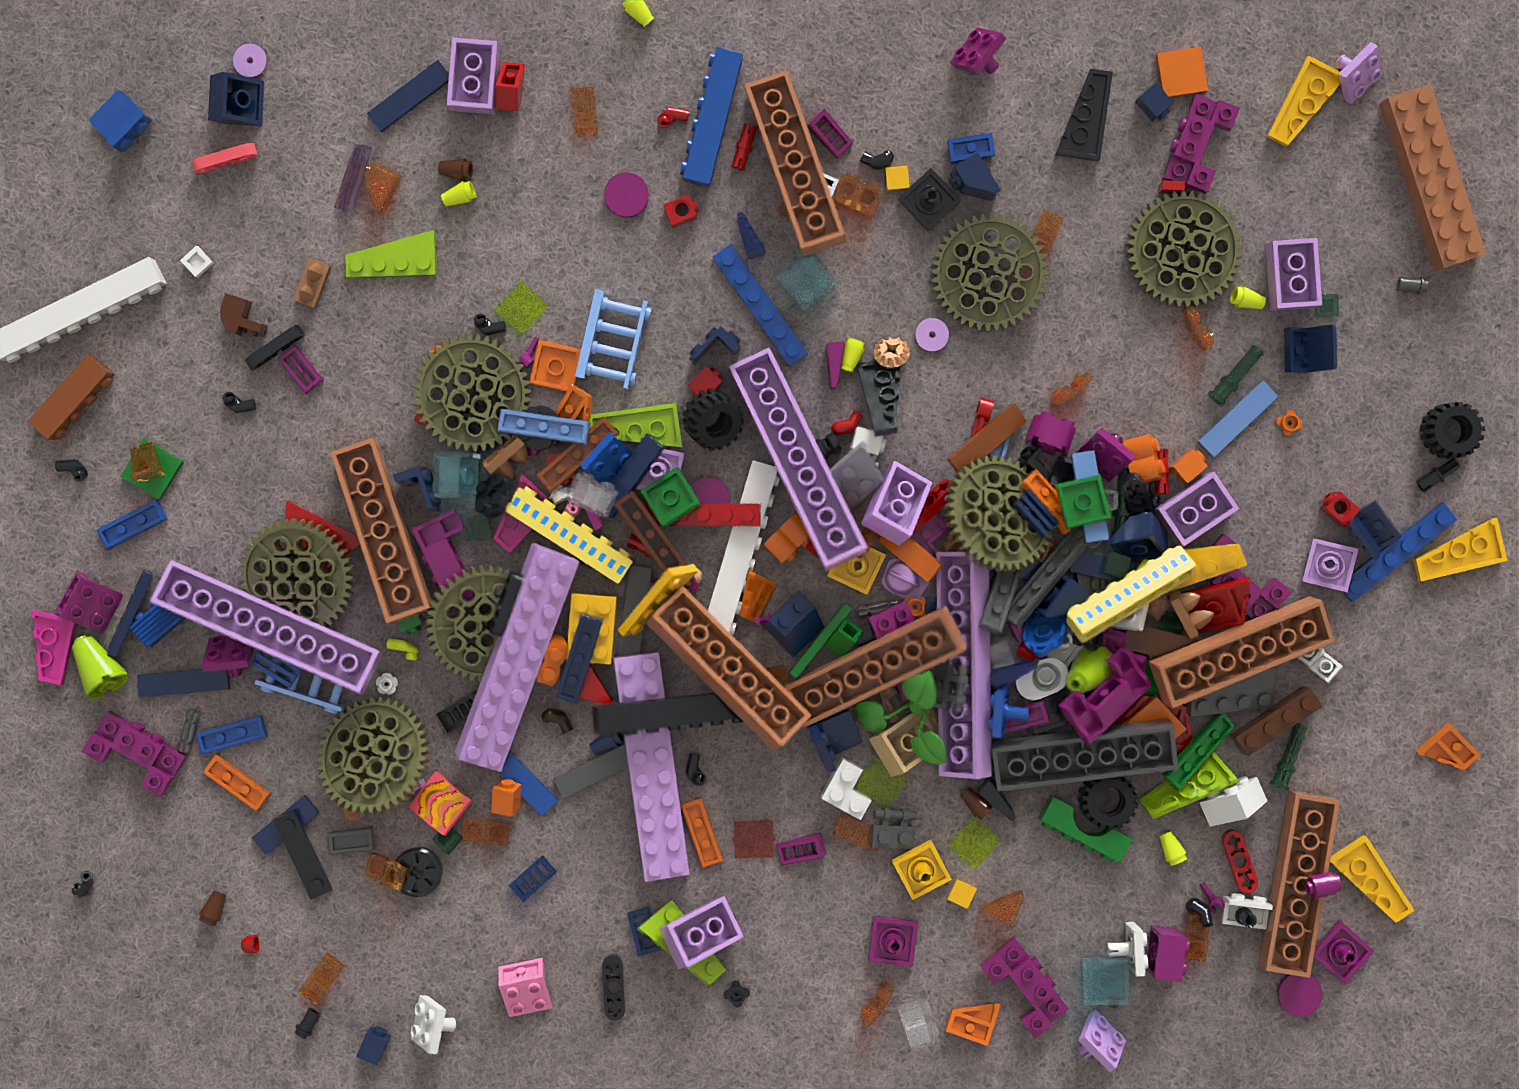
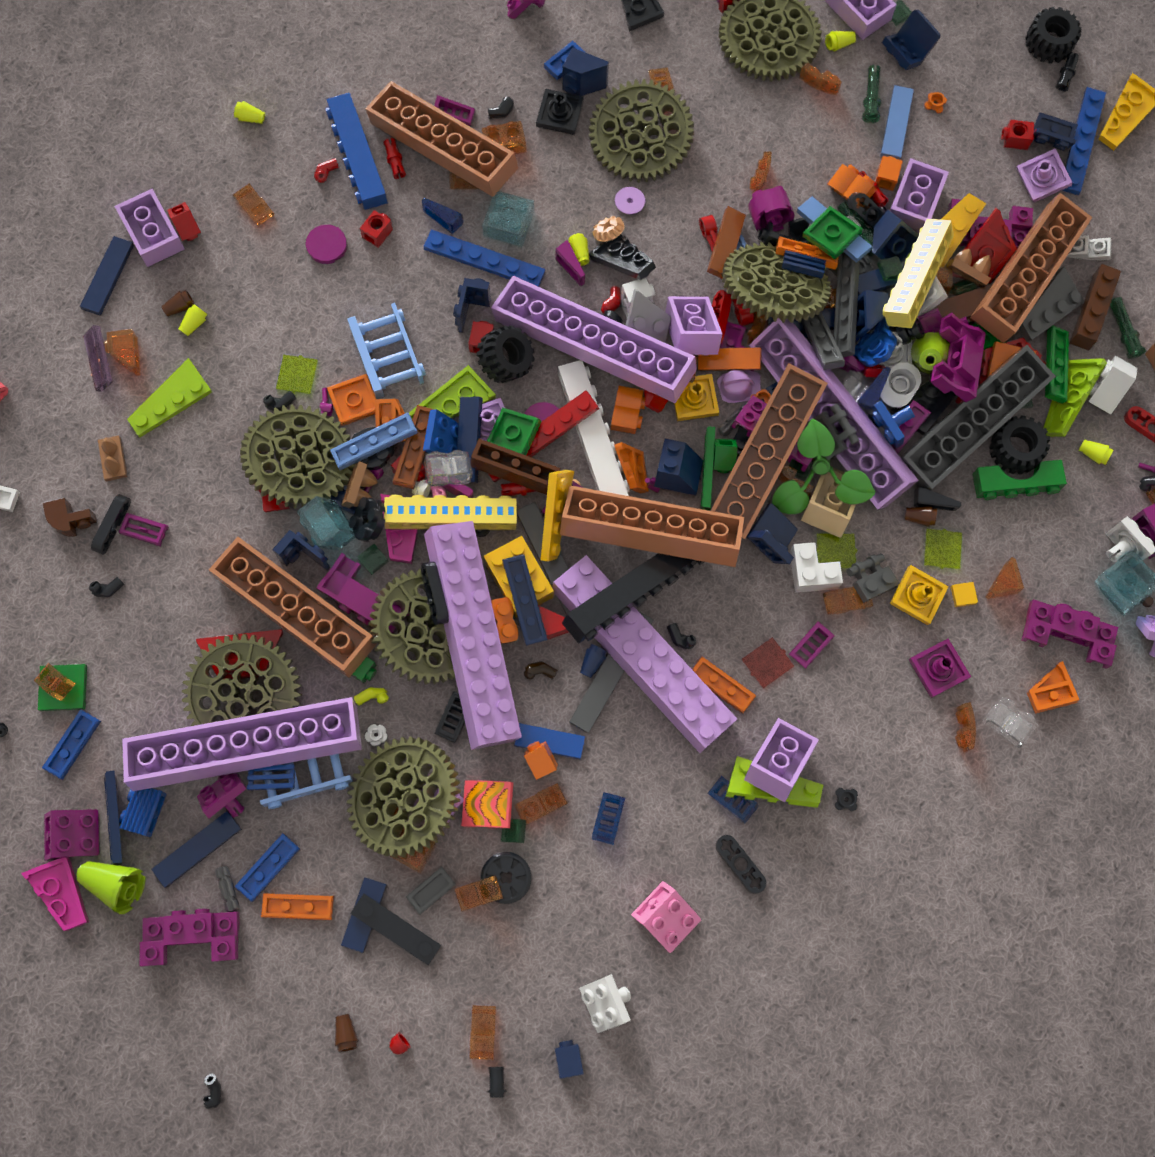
camera: 35 degrees left, 15 degrees down
(897, 178) = (525, 112): yellow tile -> none
(1109, 453) = (826, 191): magenta plate -> none

